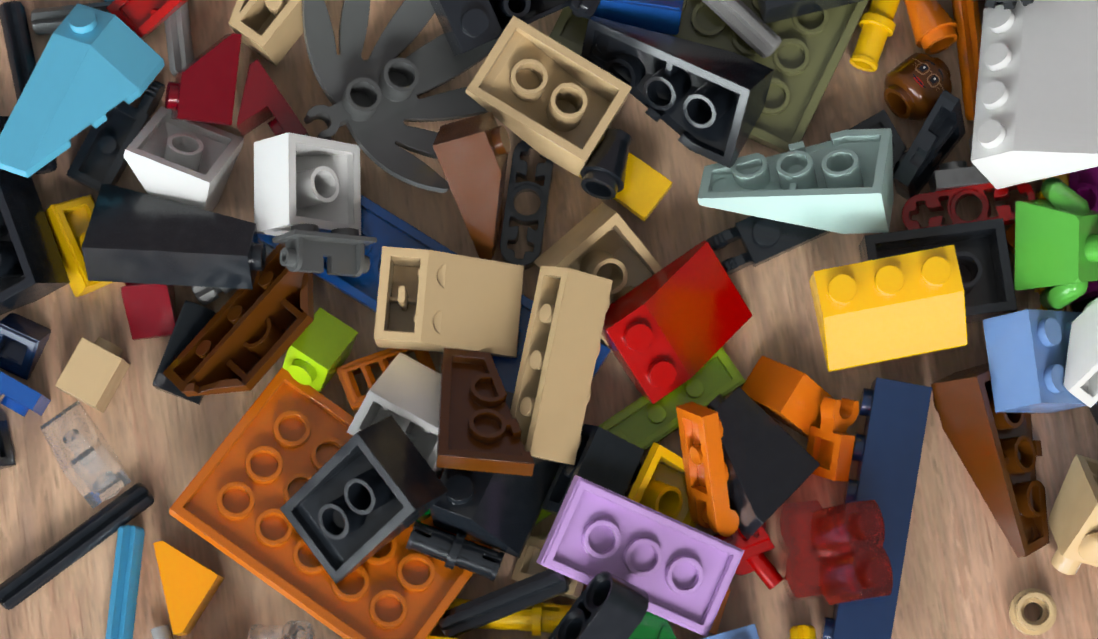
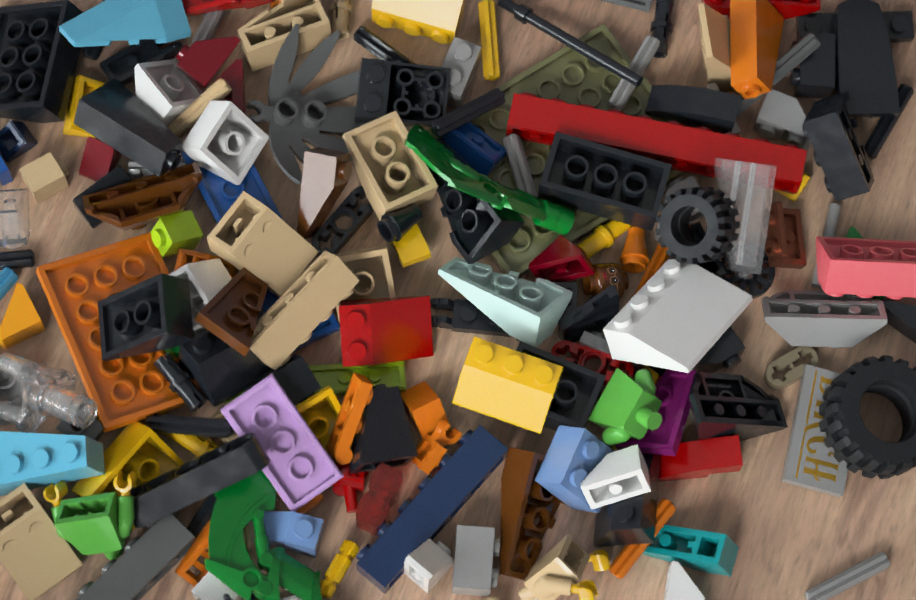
camera: 20 degrees right, 10 degrees down
(241, 160) = (191, 114): none -> tan axle
(307, 247) = (203, 169): dark grey hinge -> none
(692, 59) = (464, 178): none -> green piece
(848, 94) = (561, 262): none -> dark red slope
(852, 552) = (400, 514): clear red brick -> none
(923, 598) = (428, 564): none -> white slope
(976, 559) = (474, 560): none -> light grey brick

